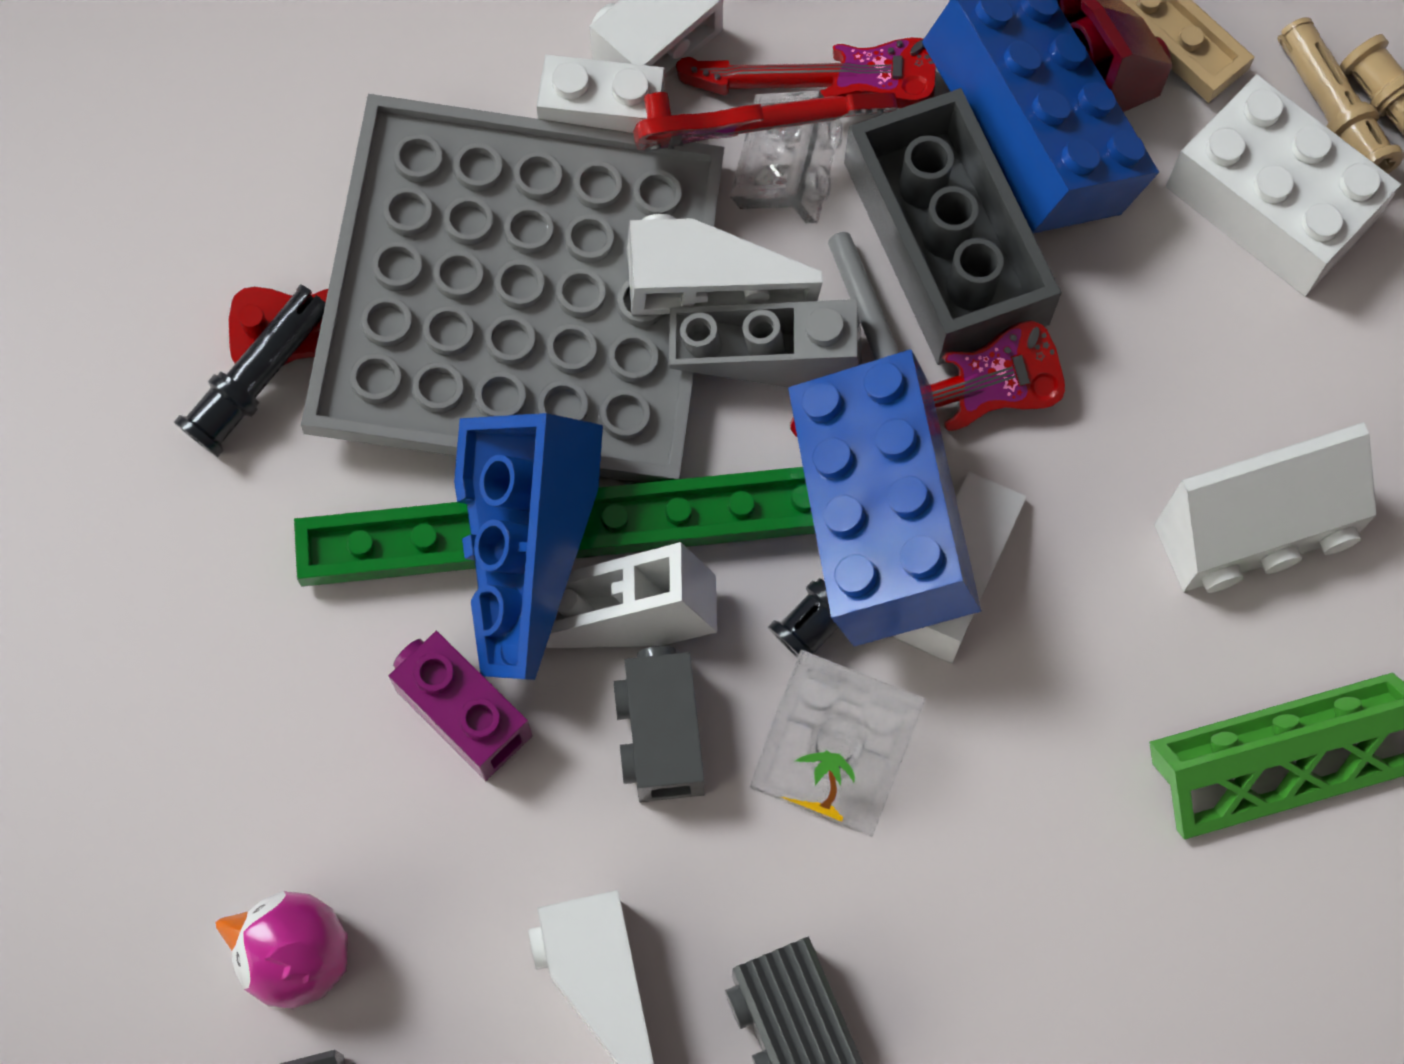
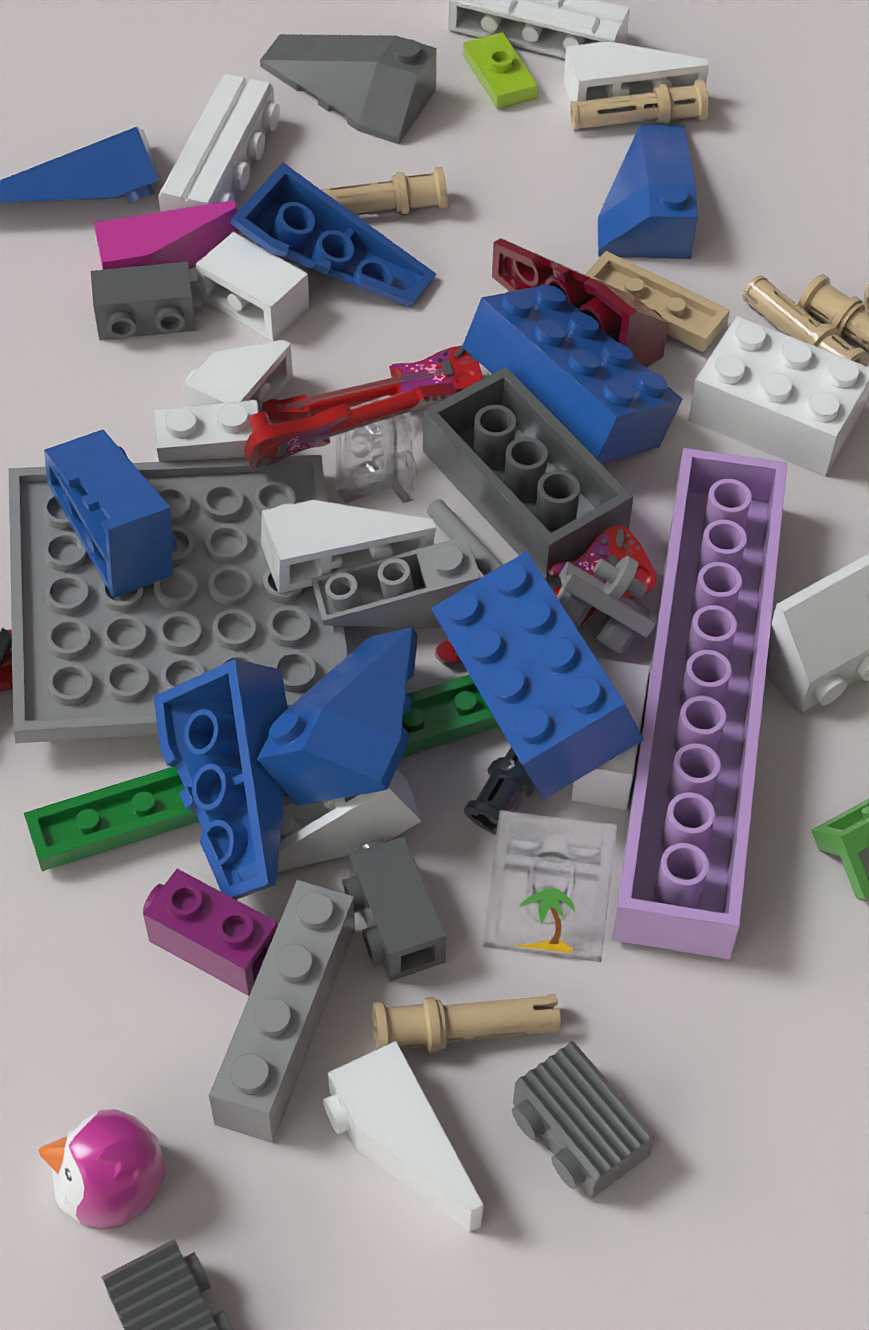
camera: 15 degrees left, 15 degrees down
(465, 179) = (112, 511): none -> blue wedge
(513, 816) = (283, 1012): none -> light grey brick
(653, 515) = (347, 727): none -> blue wedge
(669, 872) = (435, 1024): none -> tan pin
(1000, 406) = (624, 616): none -> light grey hips
(1073, 560) = (703, 709): none -> lavender brick

